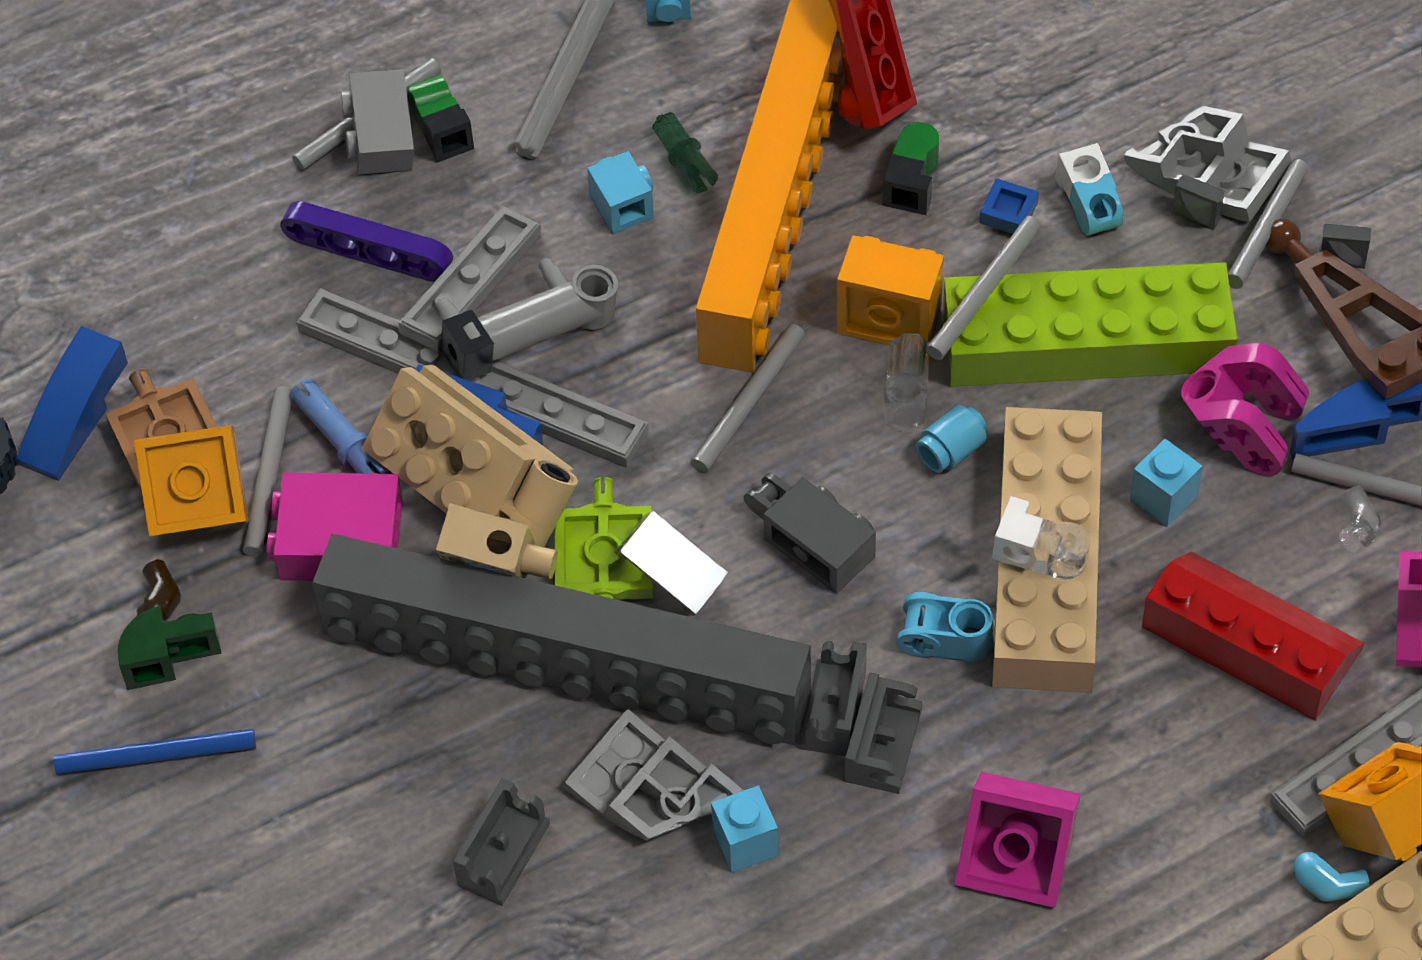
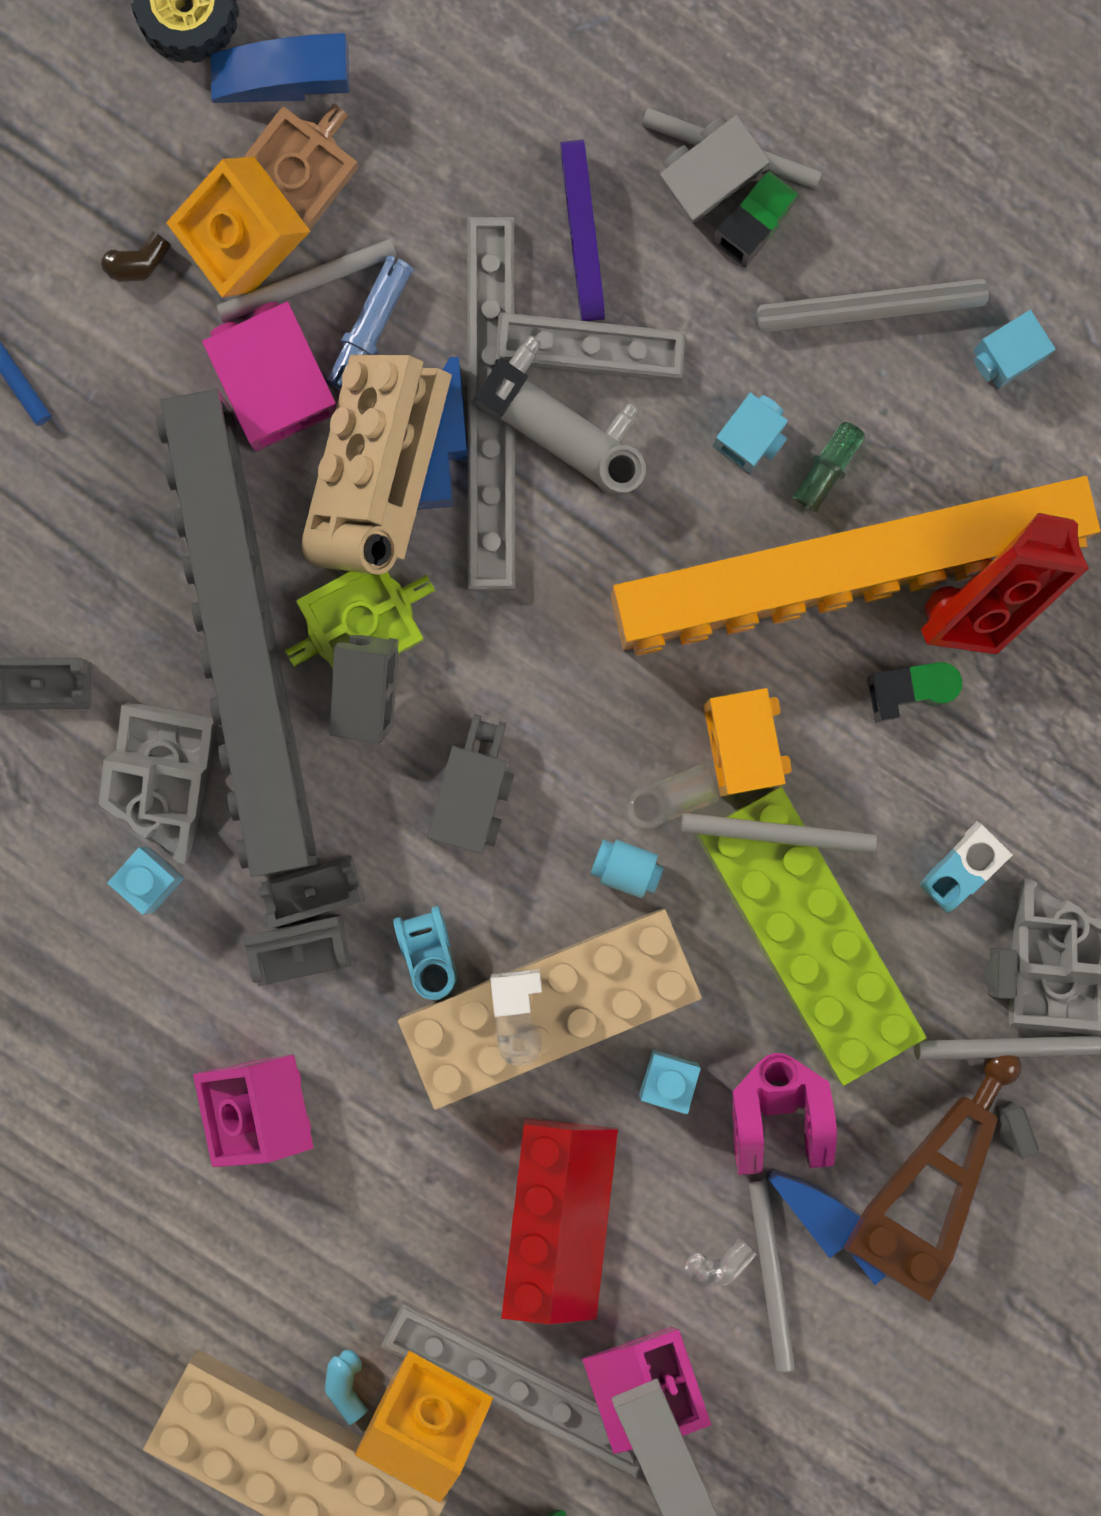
camera: 60 degrees right, 30 degrees up
(152, 646) = (78, 286): dark green brick -> none
(482, 539) = (274, 535): tan torso -> none
(748, 398) = (590, 662): light grey bar -> none
(1008, 205) = (912, 799): blue plate -> none

